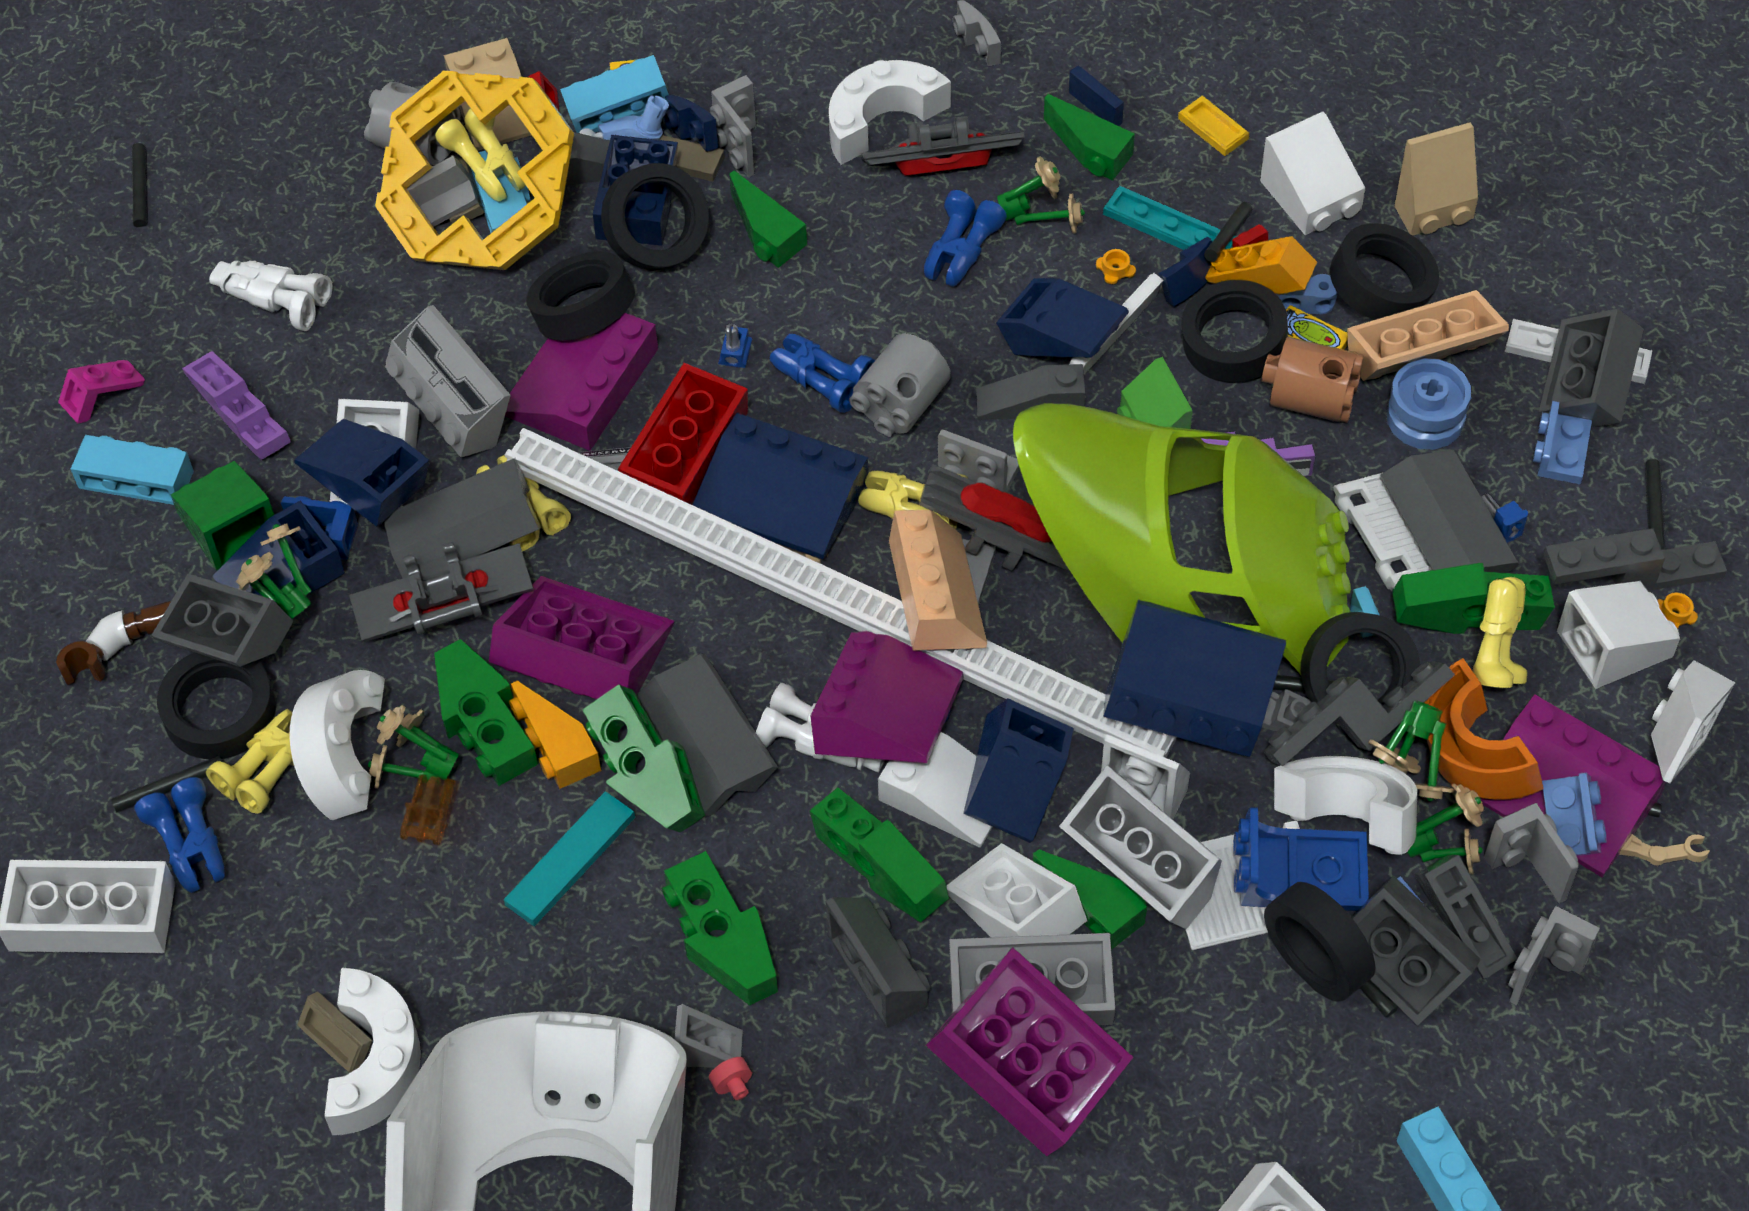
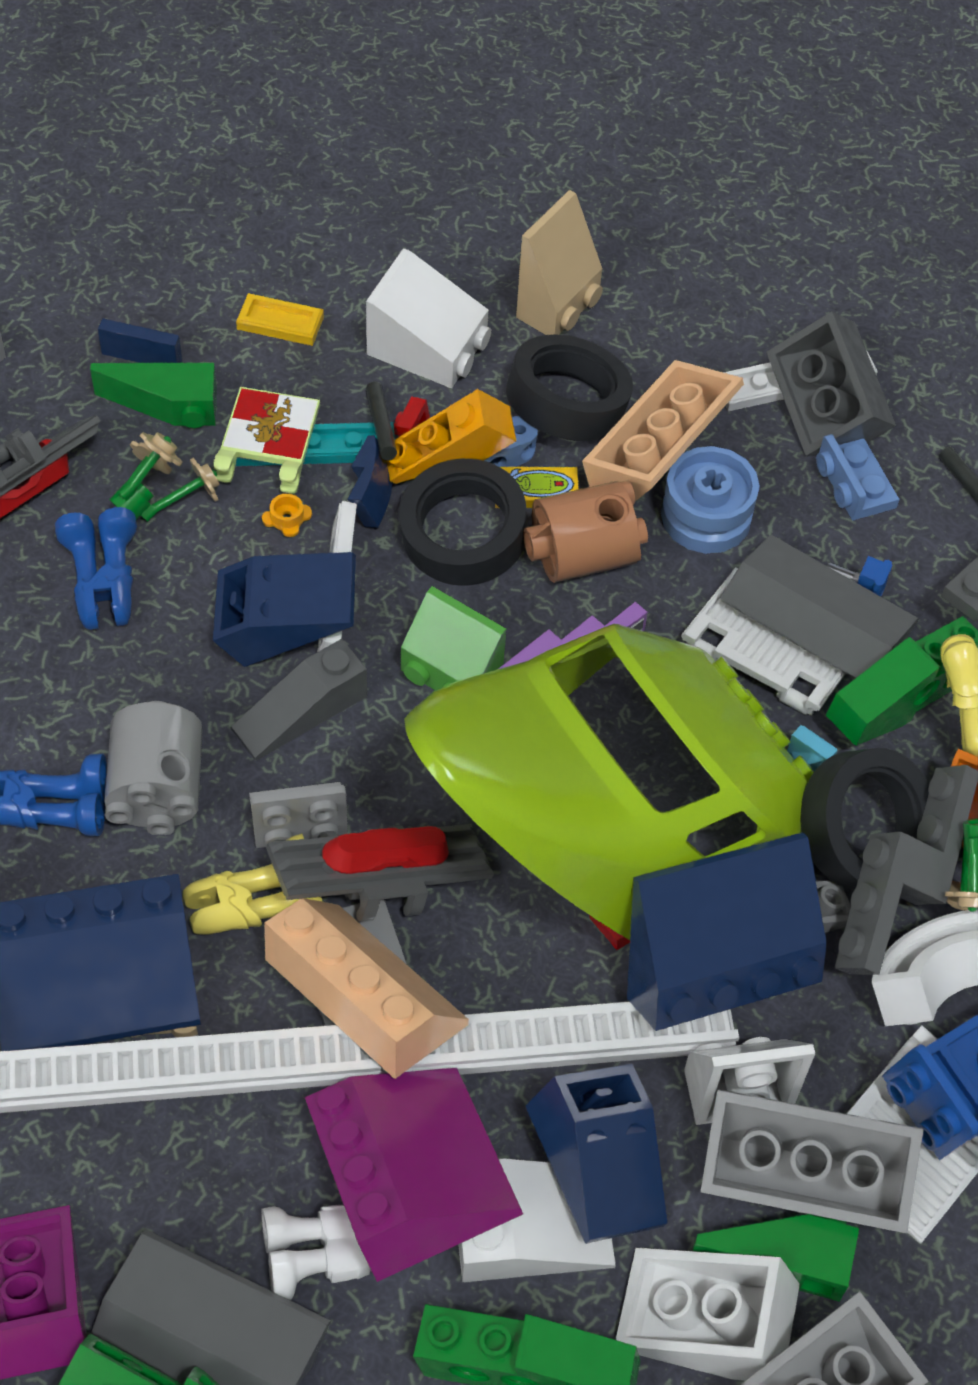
camera: 40 degrees left, 0 degrees up
(1143, 200) = (270, 430): none -> flag

